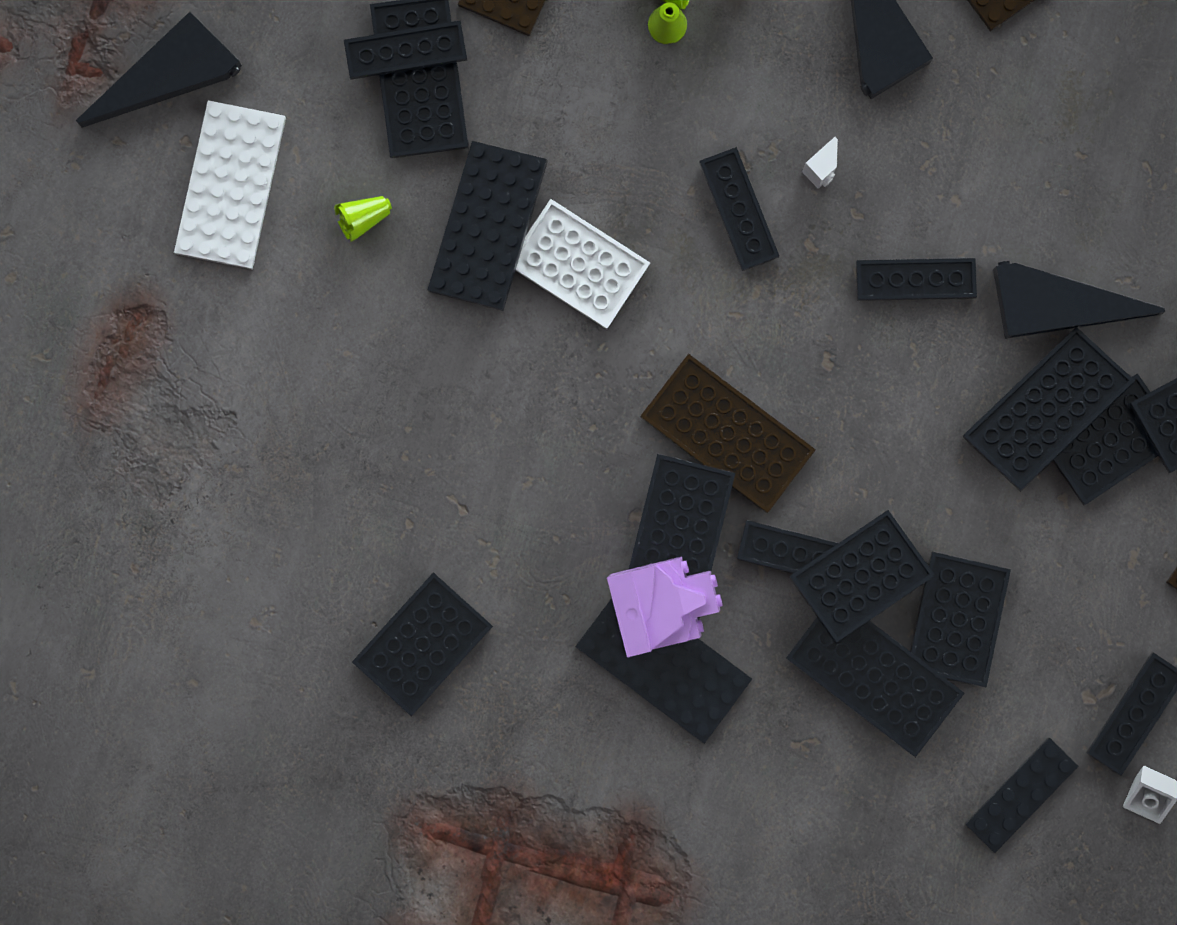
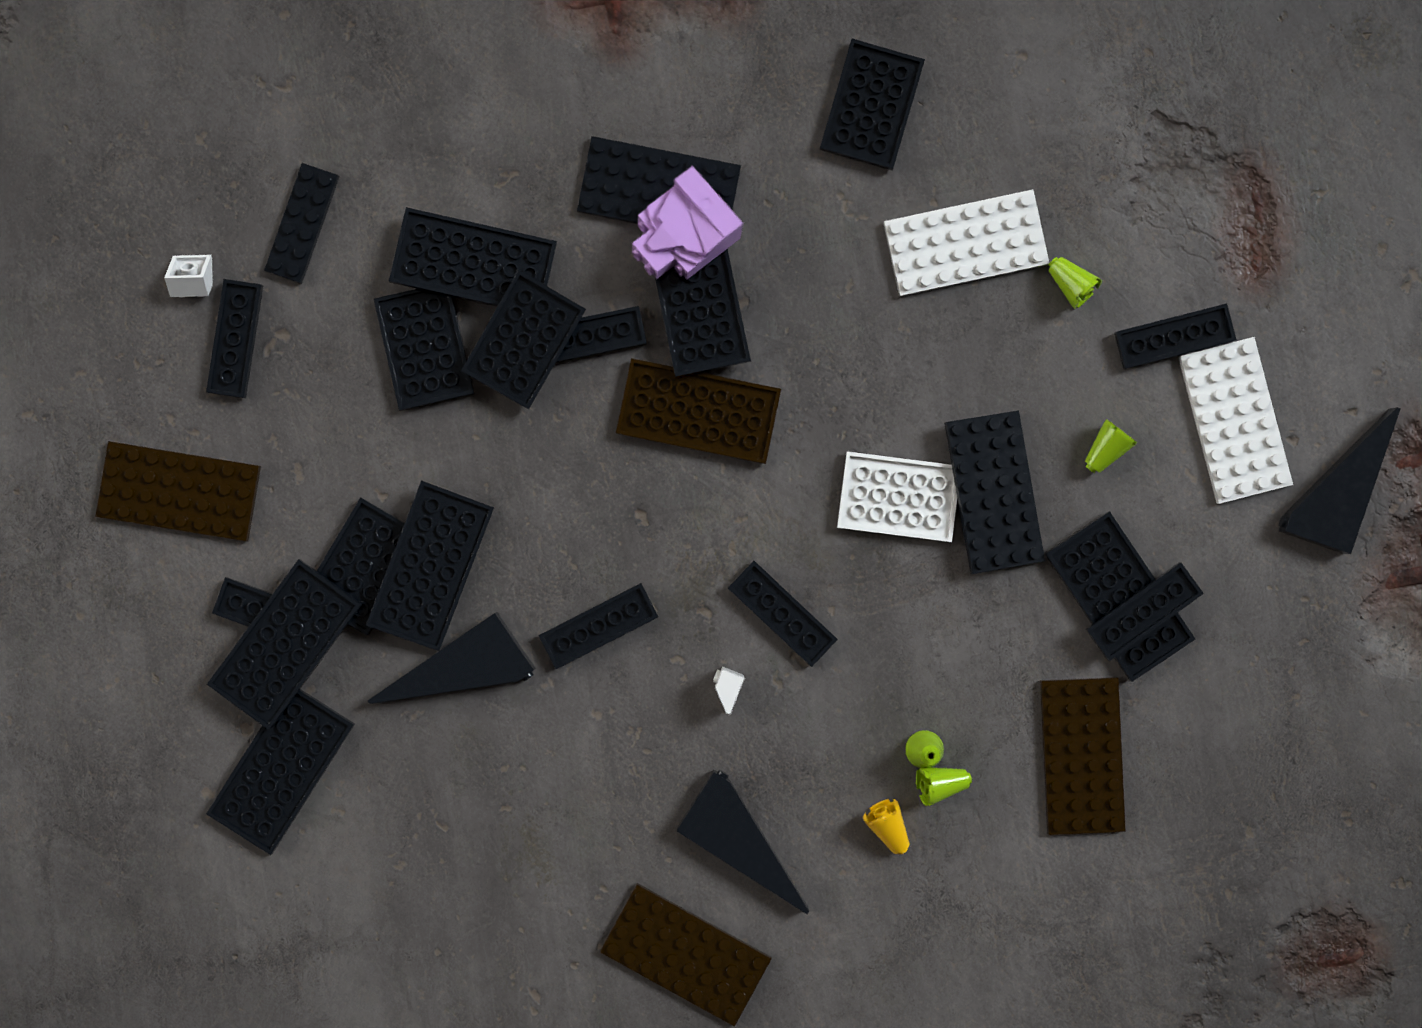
camera: 160 degrees right, 5 degrees up
(247, 288) = (1175, 336): none -> black plate
(317, 384) = (1073, 281): none -> lime cone
(398, 470) = (966, 243): none -> white plate

